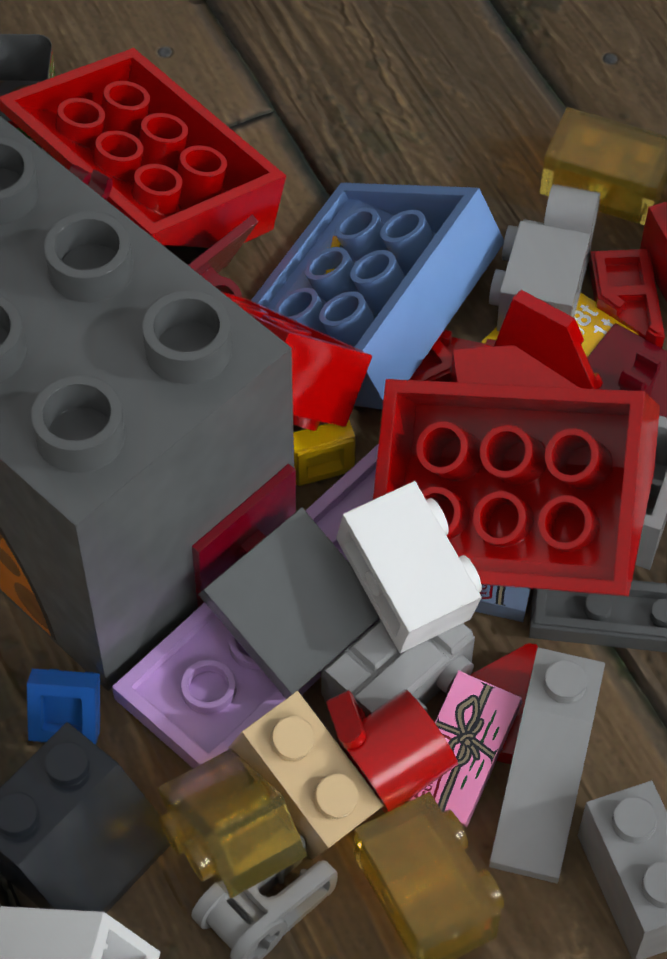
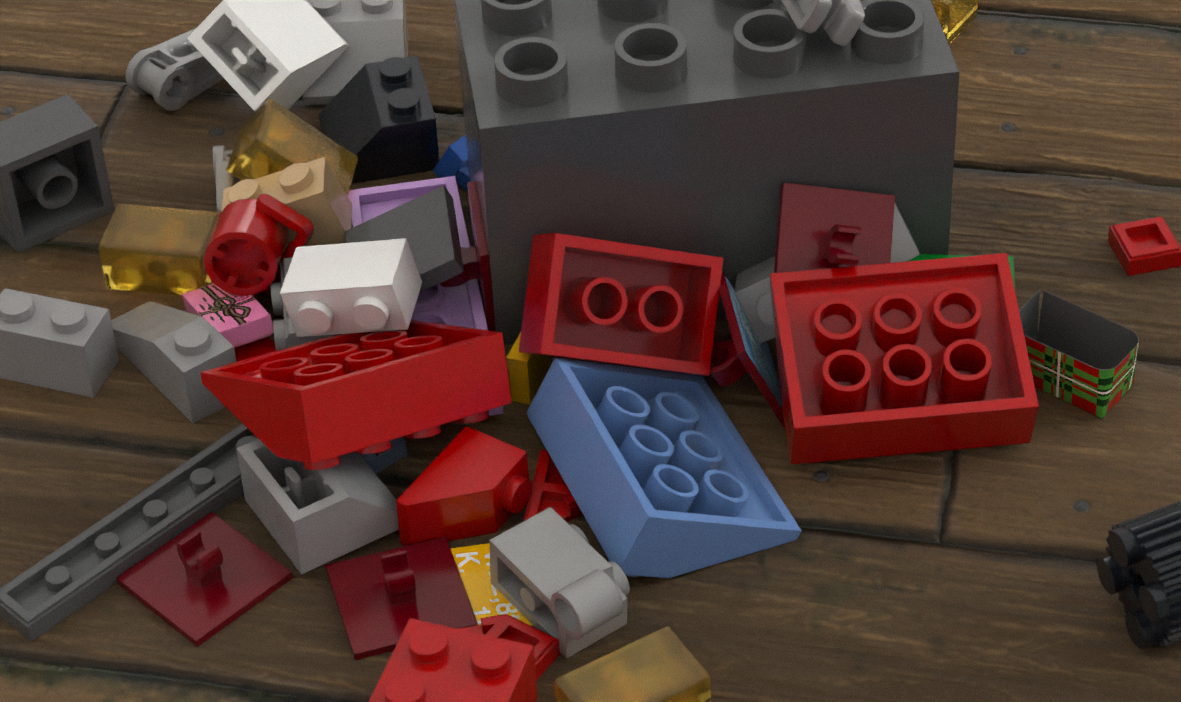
camera: 130 degrees right, 15 degrees down
(549, 338) = (473, 530): red tile -> none

